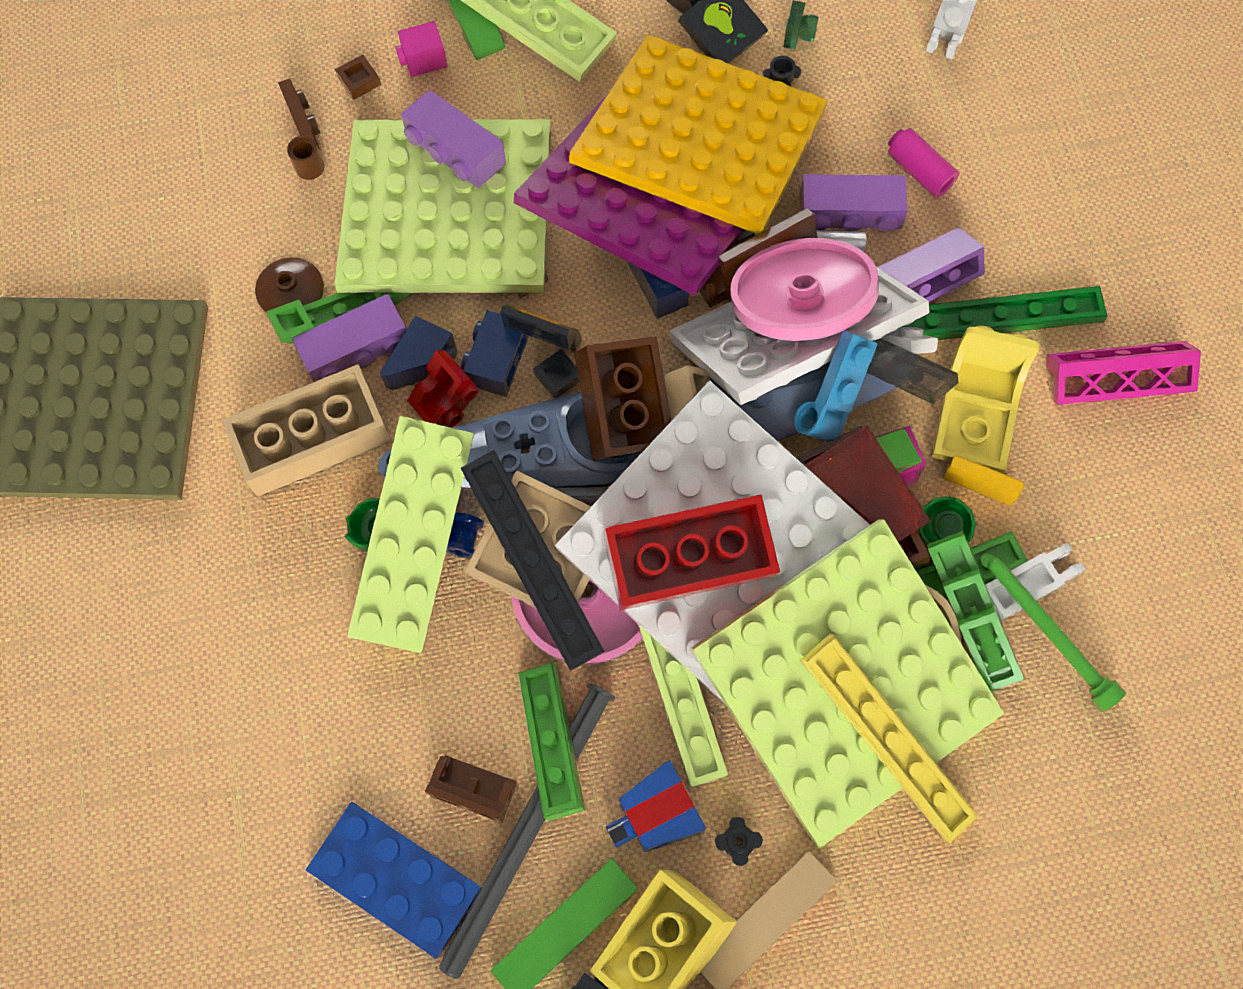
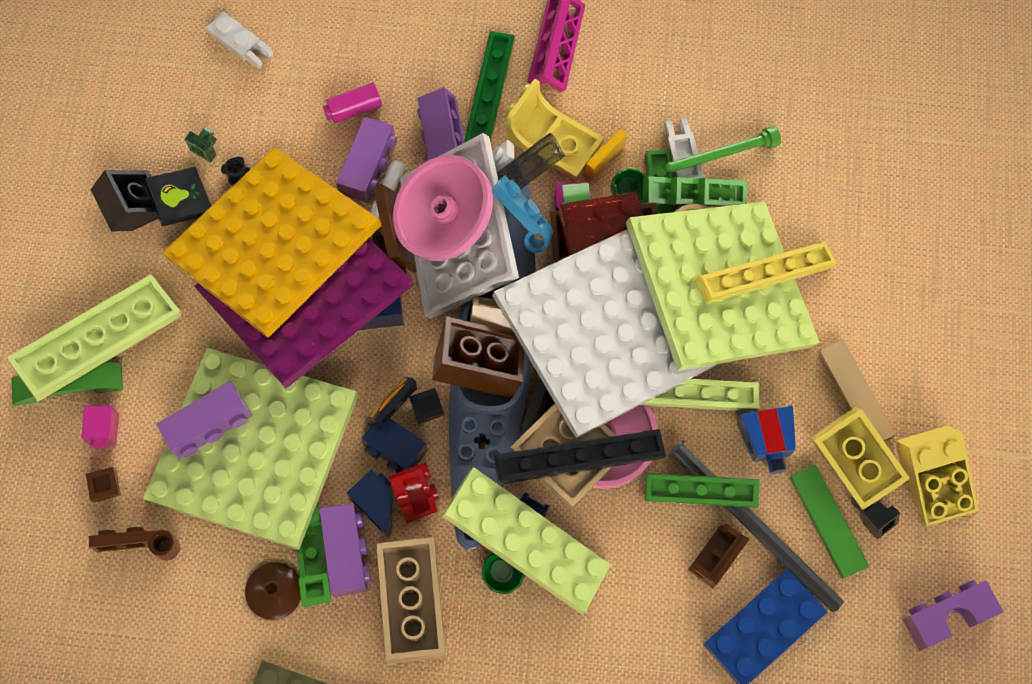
camera: 75 degrees left, 0 degrees up
(690, 552) = (619, 344): red brick -> none
(750, 839) = (798, 398): black plate -> none

